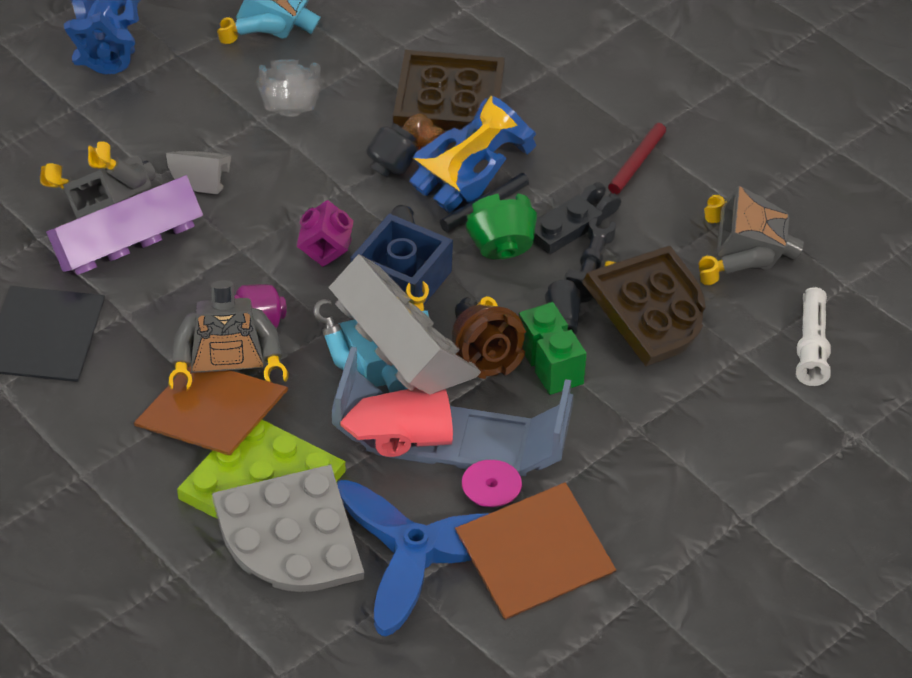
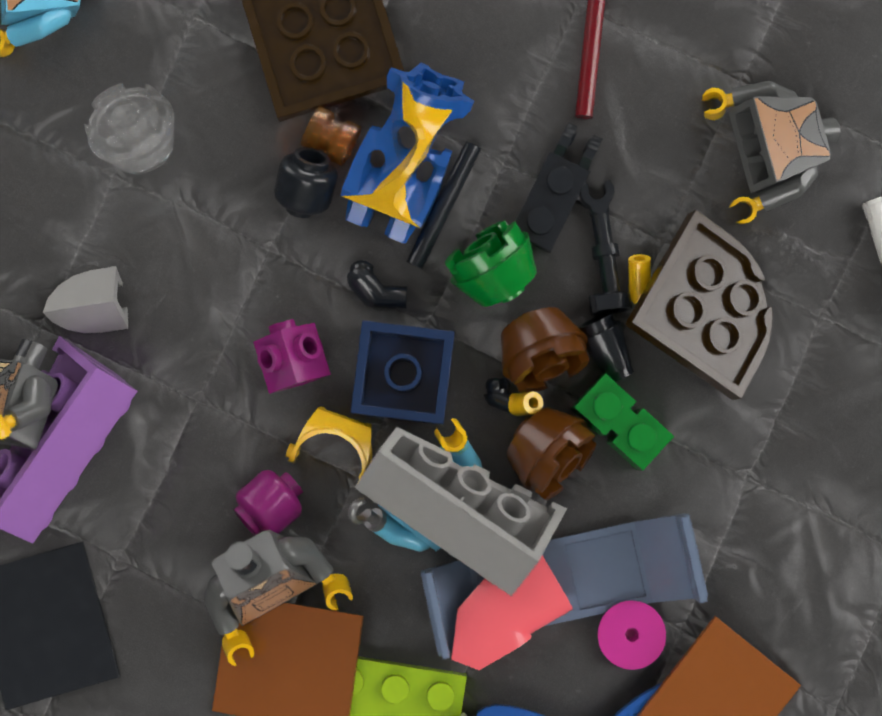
camera: 20 degrees left, 40 degrees up
(316, 281) = (329, 422): none -> yellow helmet
(513, 280) = (541, 348): none -> reddish brown cone

